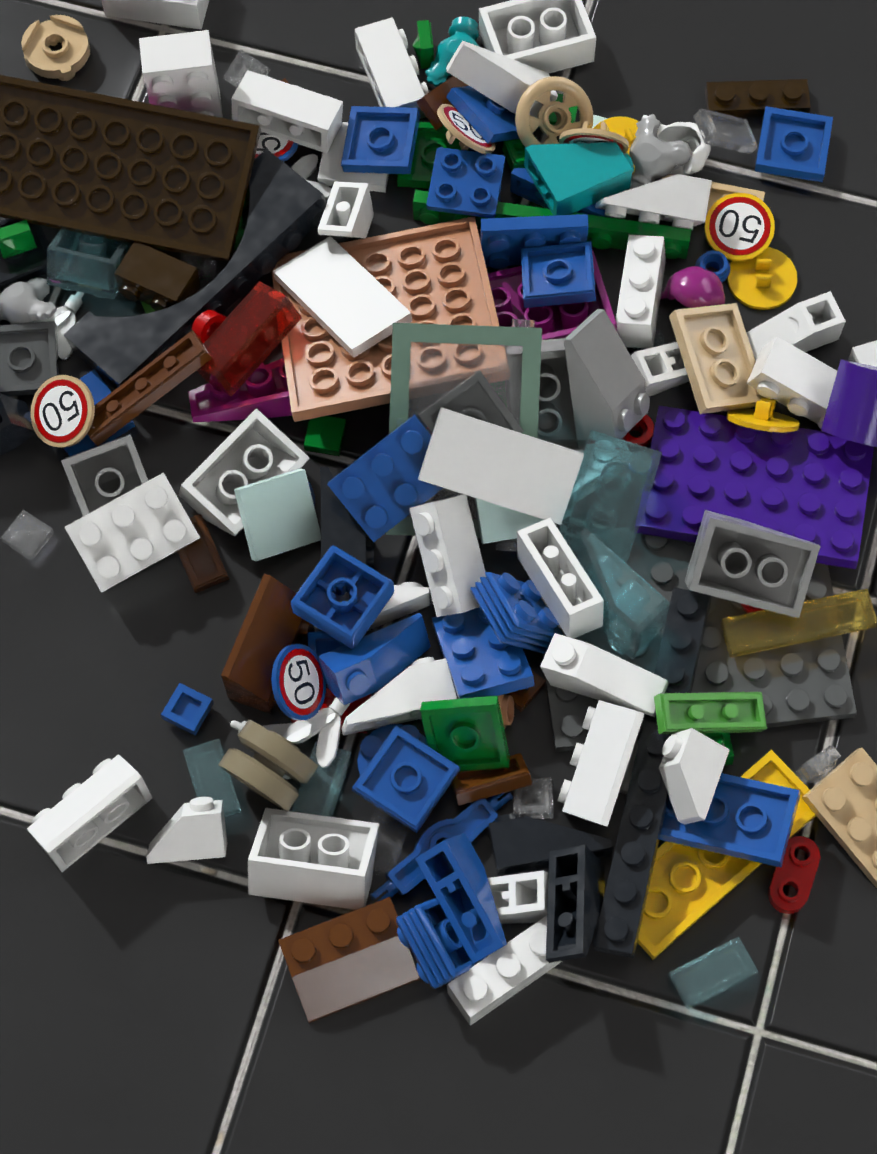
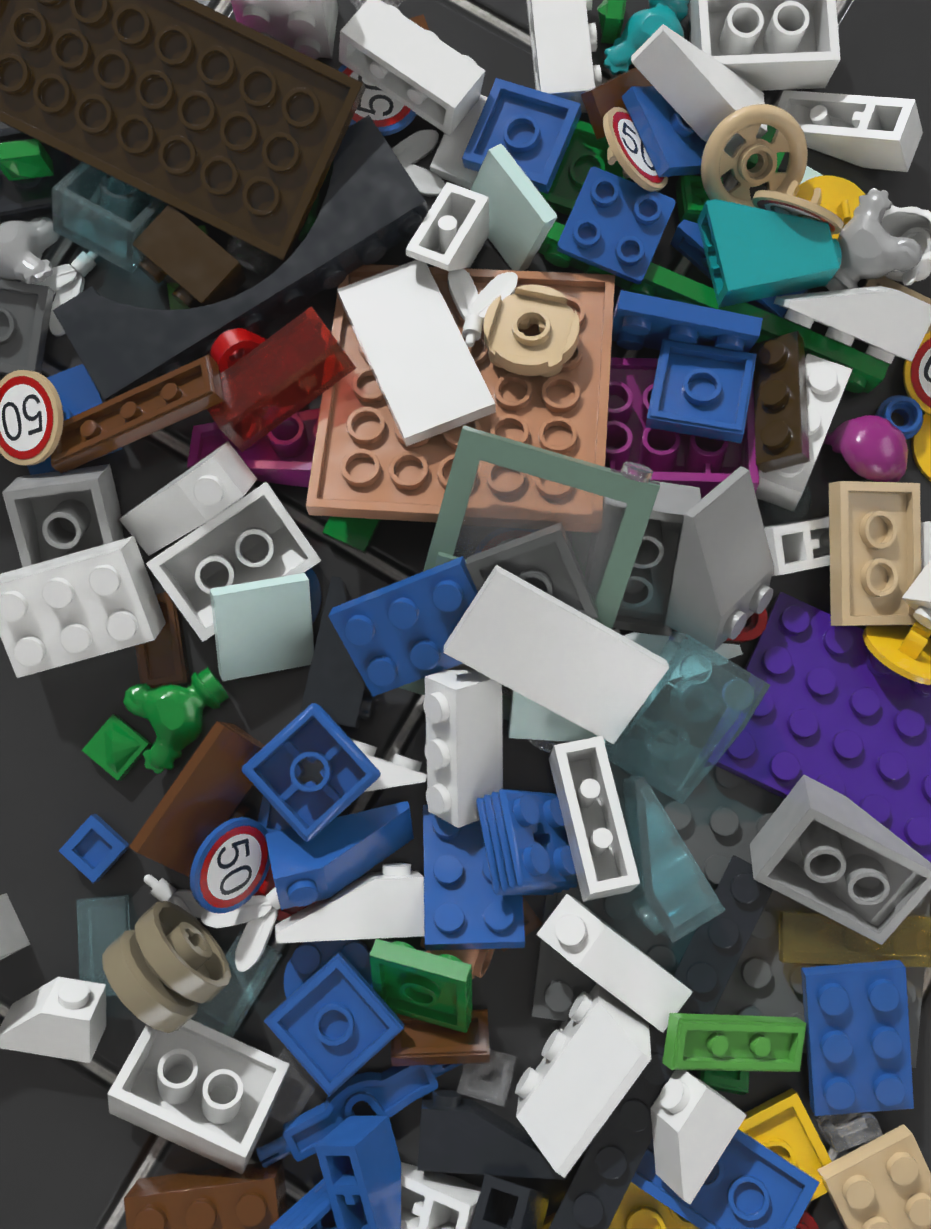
camera: 10 degrees right, 15 degrees up
(185, 635) = (116, 747): none -> green tile
(198, 439) = (190, 499): none -> white slope
(225, 597) = (174, 714): none -> green animal
(379, 259) = (474, 305): none -> white piece
(390, 187) = (516, 208): none -> light aqua tile
(436, 275) = (531, 354): none -> tan plate
(617, 269) = (780, 403): none -> dark brown plate
(625, 81) = (858, 128): none -> white slope
(803, 694) = (857, 1037): none -> blue plate

